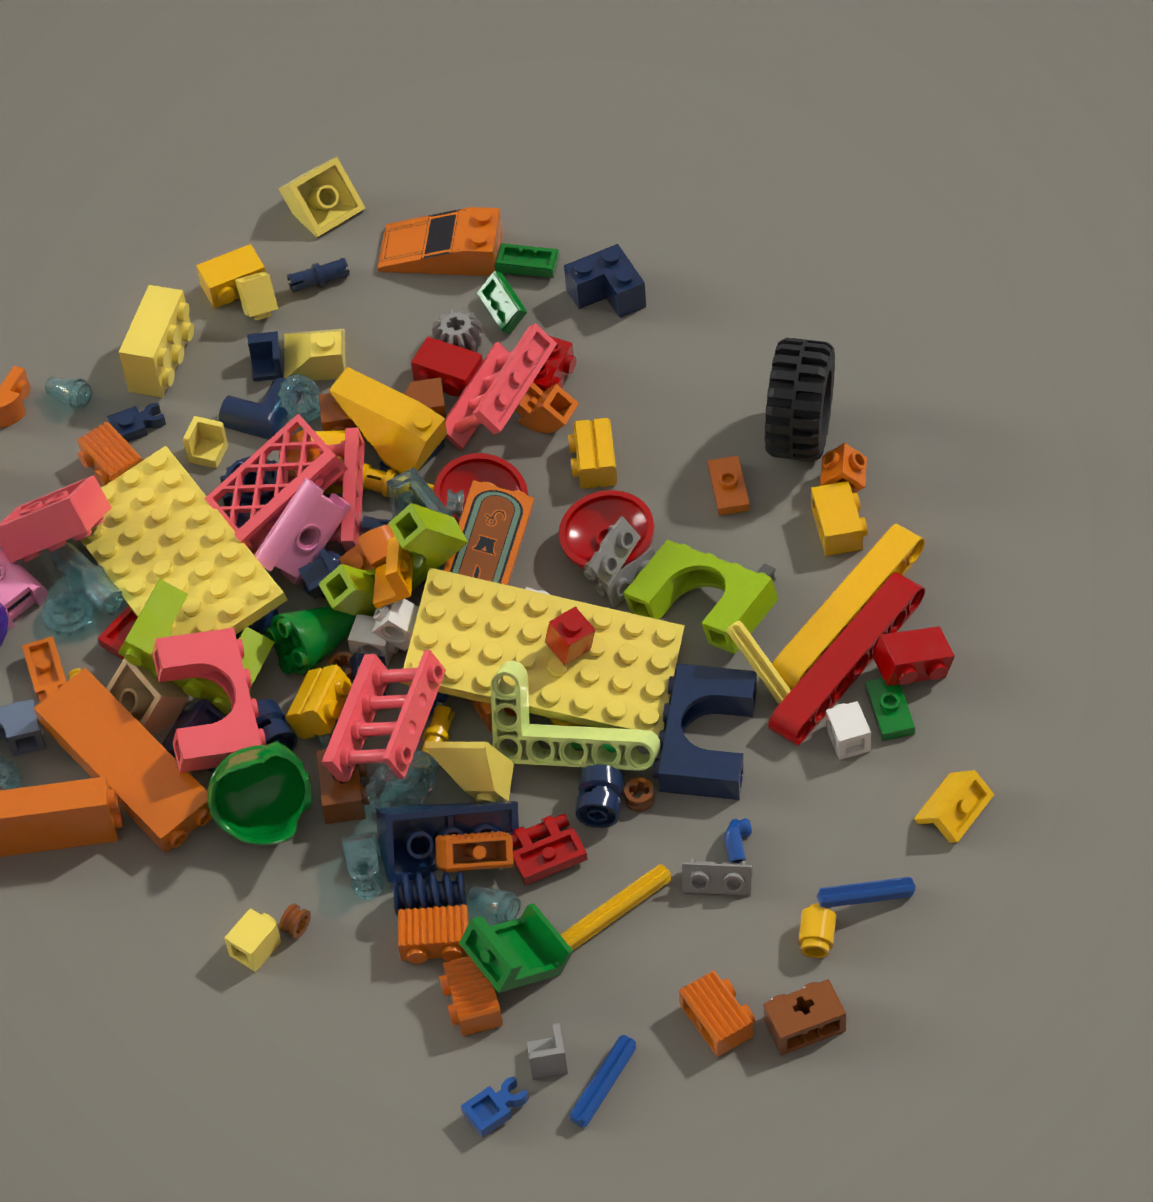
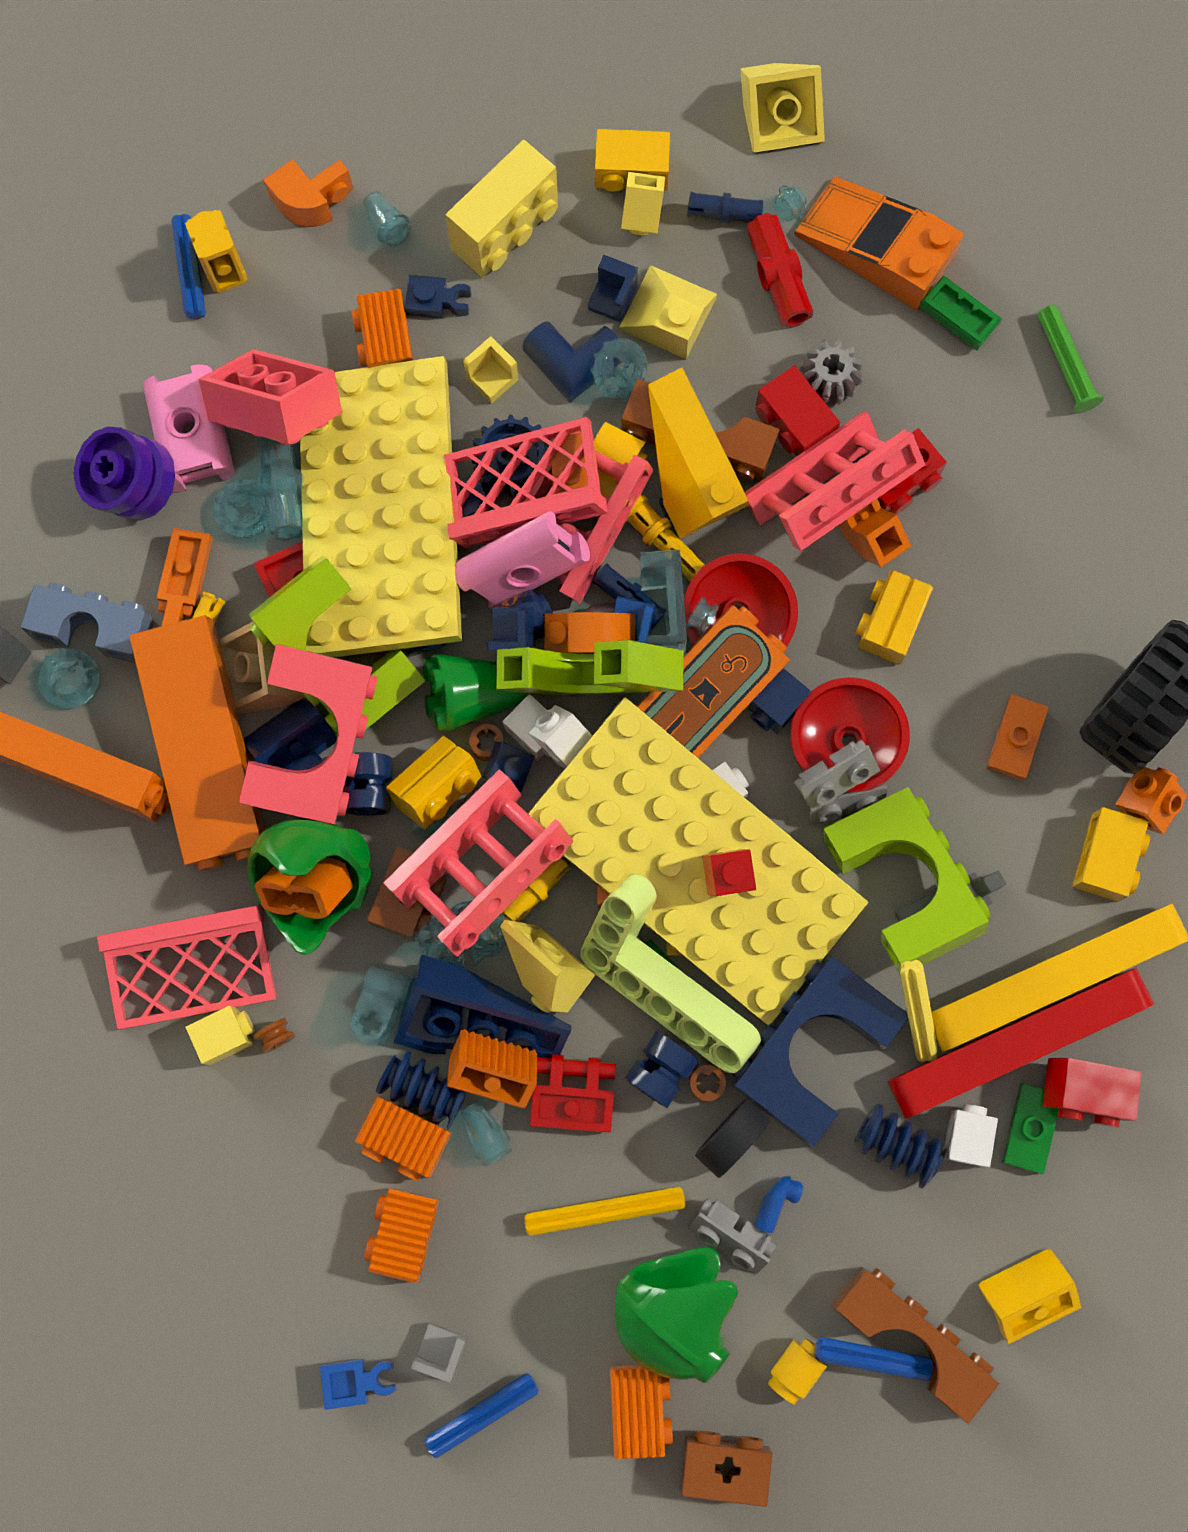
camera: 25 degrees right, 25 degrees up
(177, 893) = (181, 932): none -> coral fence
(261, 802) = (309, 894): none -> orange brick
(363, 252) = (790, 202): none -> clear light blue plate
(381, 292) = (779, 270): none -> red piece
(394, 578) = (574, 694): light orange panel -> none
(502, 302) = (903, 356): green plate -> none
(516, 950) = (471, 1218): green panel -> none
(542, 540) = (778, 702): none -> dark blue brick
(606, 276) = (1036, 385): dark blue brick -> none
(645, 267) = (1069, 359): none -> bright green axle
(676, 806) = (732, 1138): none -> black tyre
(703, 922) = (674, 1314): none -> green piece
(801, 757) = (900, 1145): none -> dark blue piece
(853, 861) = (956, 1379): none -> dark orange arch

